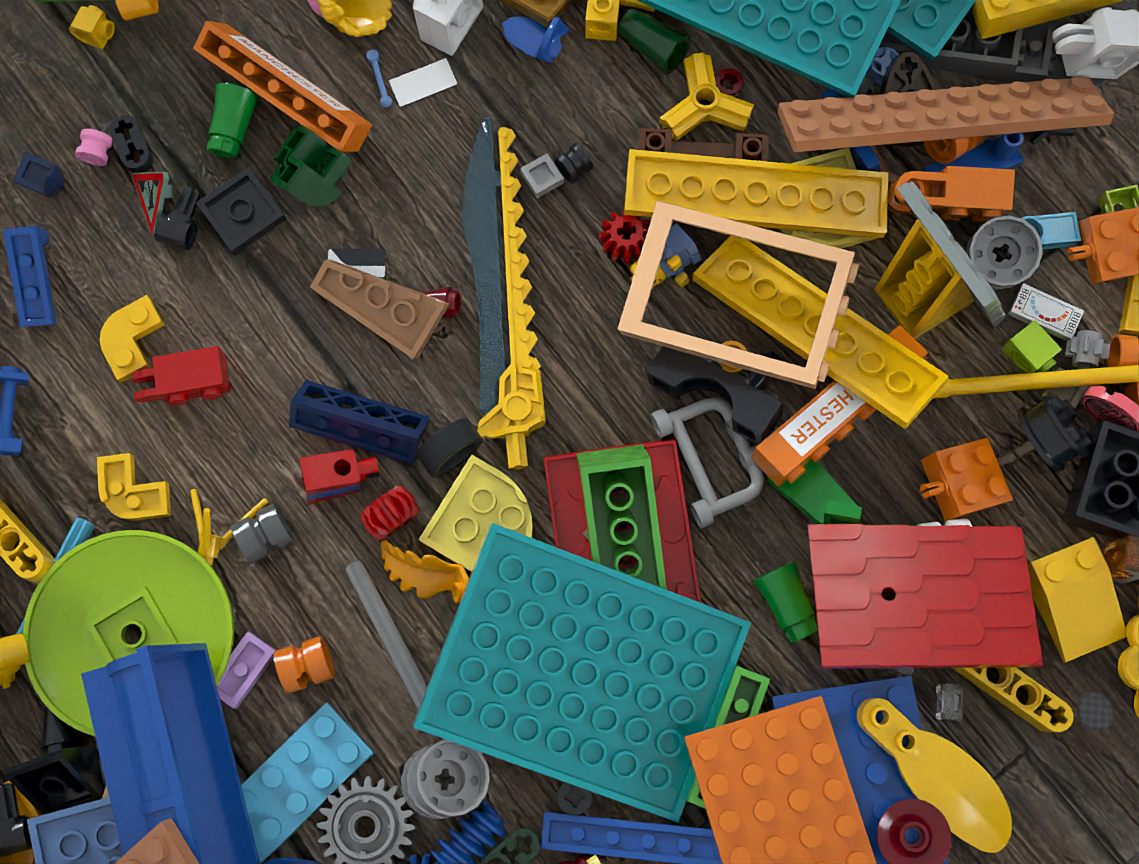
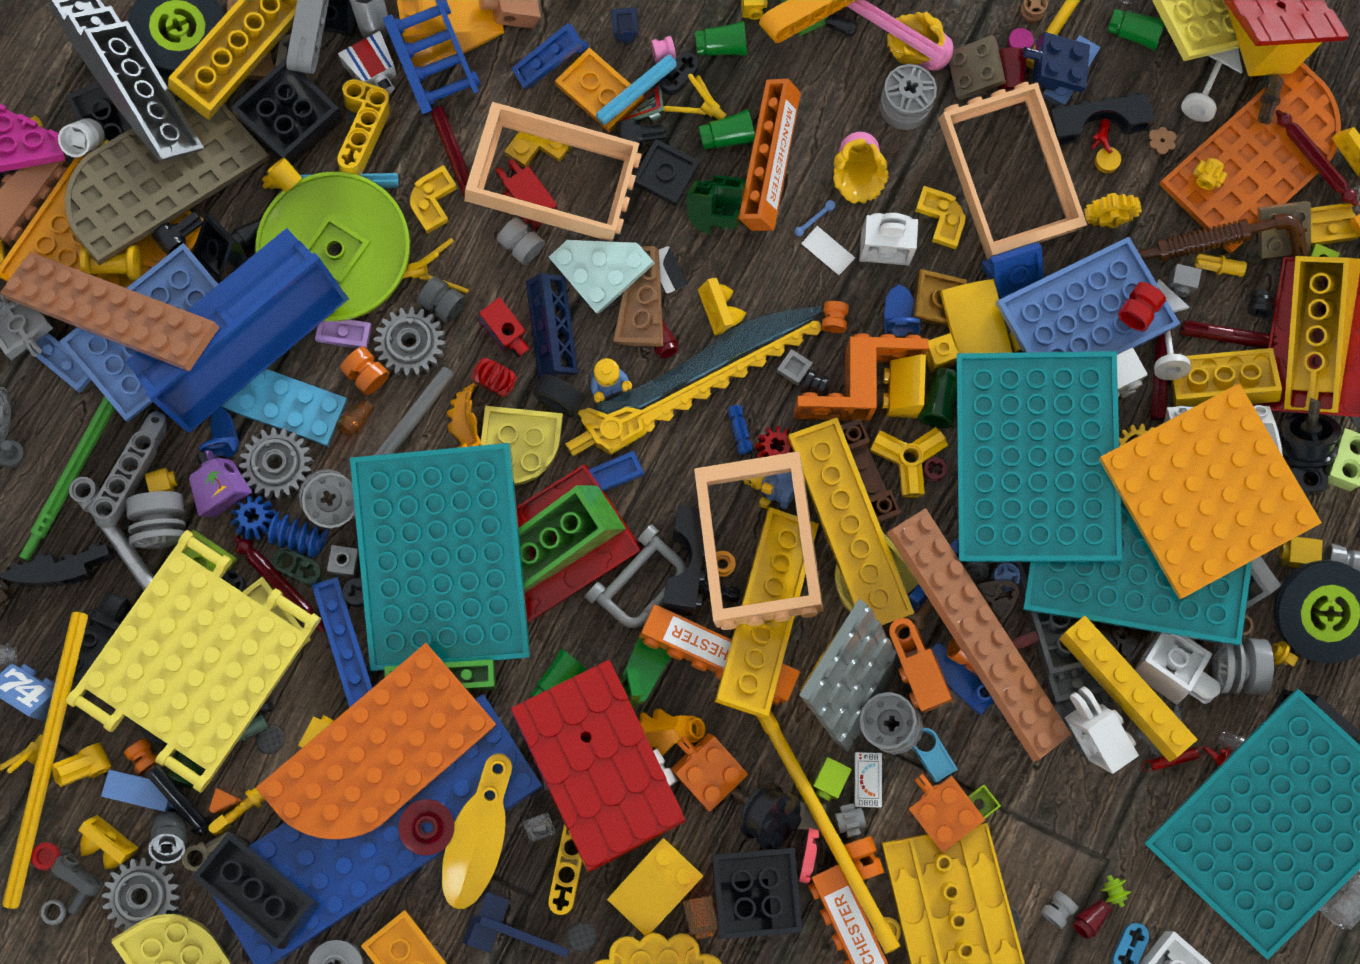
camera: 55 degrees right, 0 degrees up
(86, 439) = (451, 147): none -> dark red axle
(101, 239) = (593, 85): none -> light orange plate
(119, 77) = (722, 40): none -> green plant
(125, 195) = (636, 89): none -> medium azure axle
(138, 294) = (560, 132): none -> light nougat window
(188, 130) = (709, 107): none -> yellow plant
(242, 407) = (517, 237): none -> light grey wheel
(275, 589) = (413, 357): none -> light grey gear
(319, 332) = (601, 268): none -> light aqua plate
(356, 704) = (354, 418): none -> clear orange cone
(421, 226) = (714, 301): none -> yellow tile
(457, 382) = (608, 379): none -> yellow piece
(505, 106) = (835, 314): none -> orange wheel
(540, 791) = (349, 568): none -> light grey plate
(568, 424) = (617, 471): none -> blue tile
(585, 267) = (740, 429): none -> blue axle
(592, 106) = (860, 378): none -> orange bracket
(625, 65) = (904, 387): none -> yellow slope
(902, 500) = (665, 730): none -> light orange plant
(964, 74) = (1025, 640): none -> clear red tile
(1042, 813) = (488, 921): none -> dark blue piece

